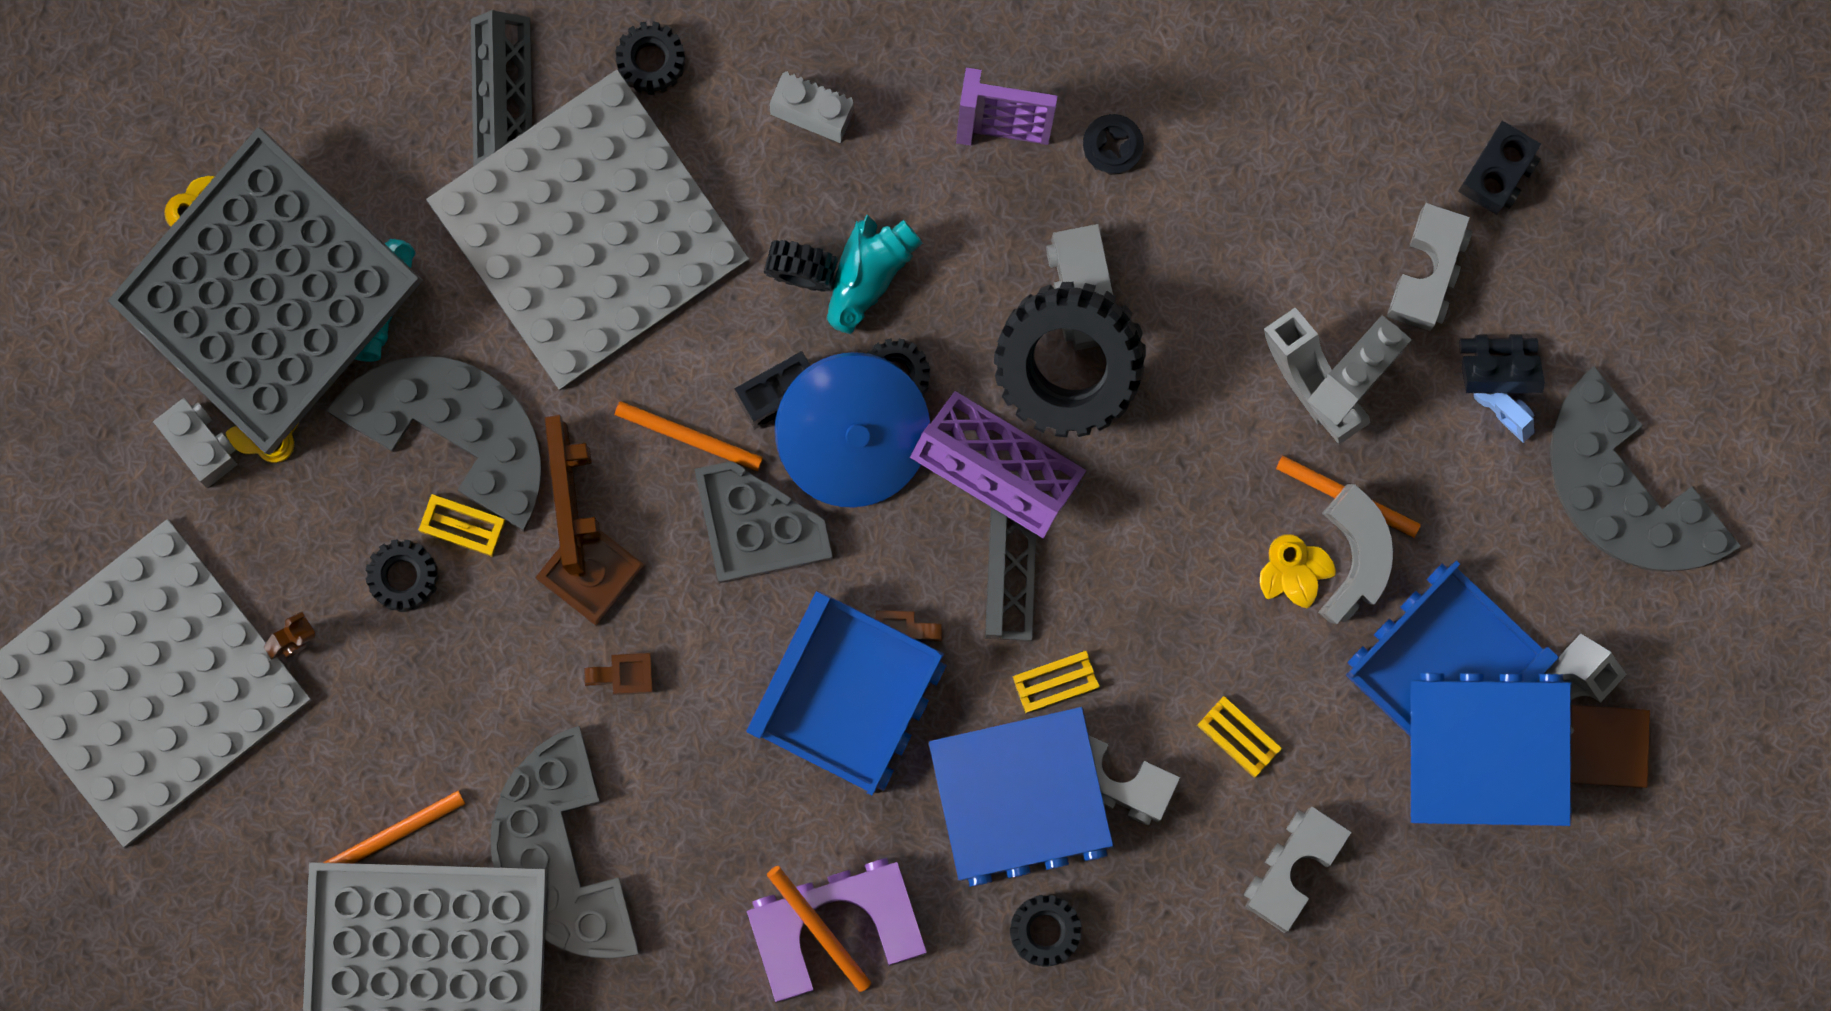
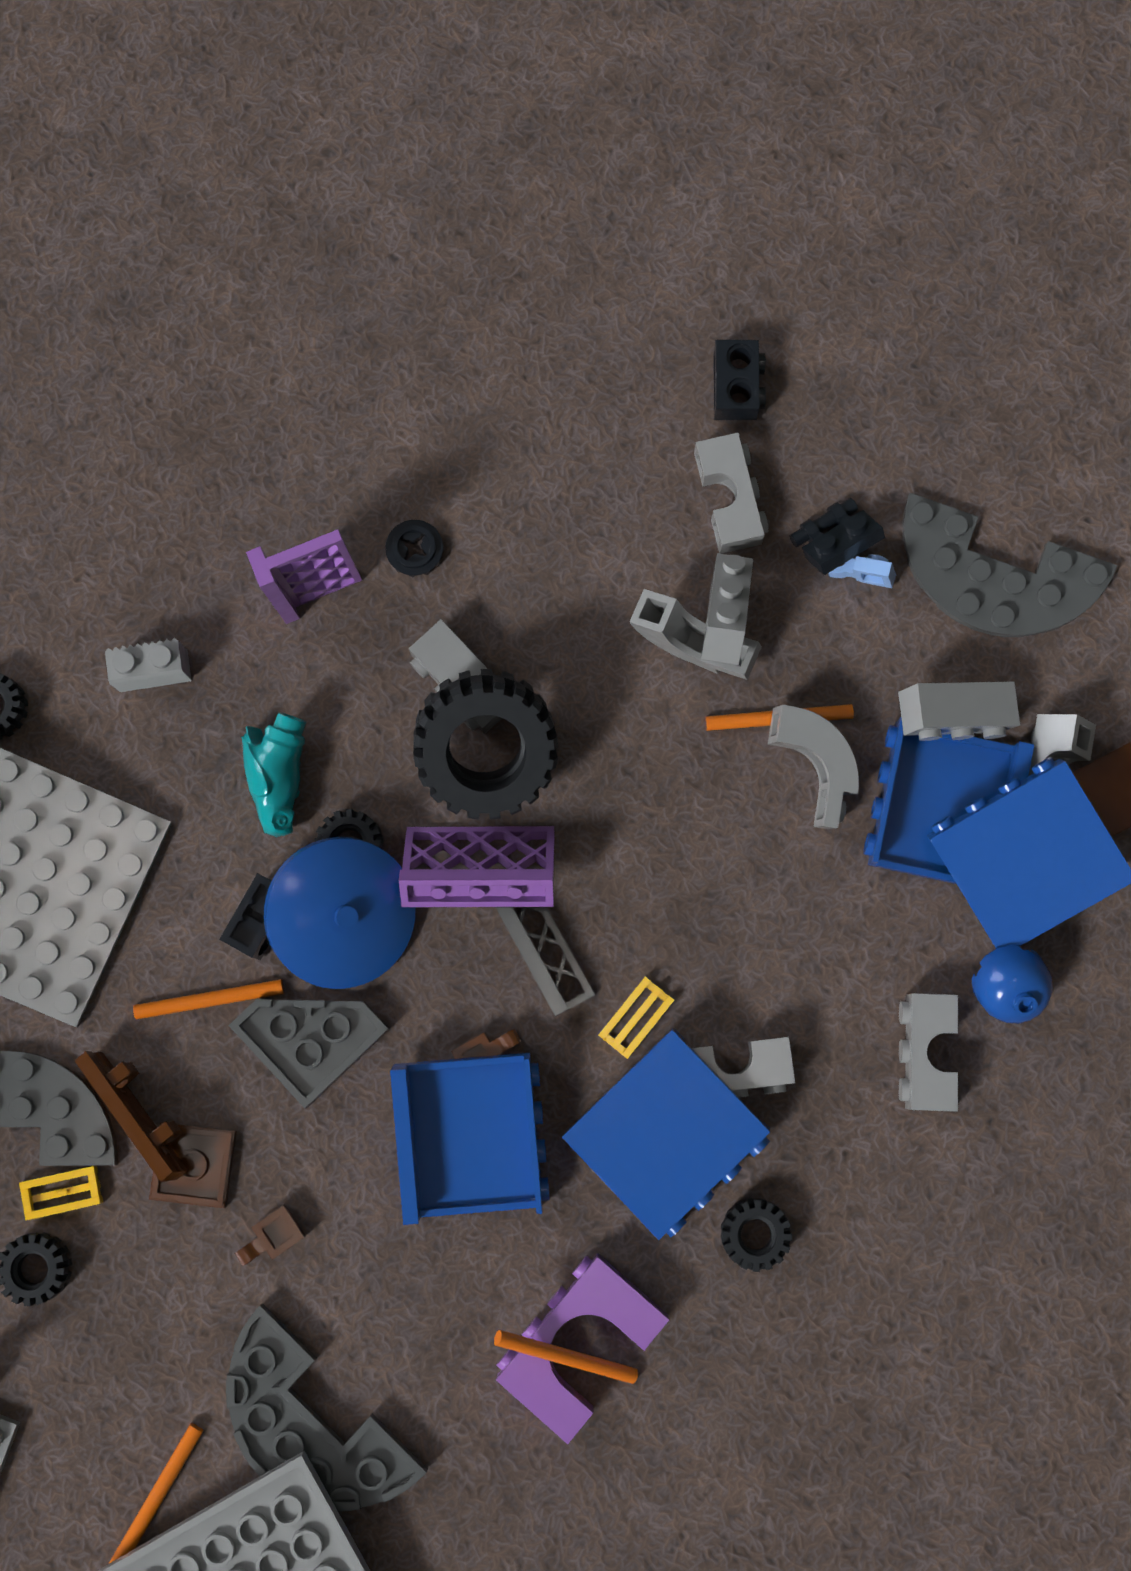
camera: 20 degrees left, 0 degrees up
(800, 265) = (215, 801): black tyre -> none
(1263, 758) = (845, 975): yellow tile -> none
(1298, 576) = (779, 807): yellow plate -> none
(1406, 853) = (1013, 984): none -> blue cylinder
(1511, 586) = (959, 709): none -> light grey brick

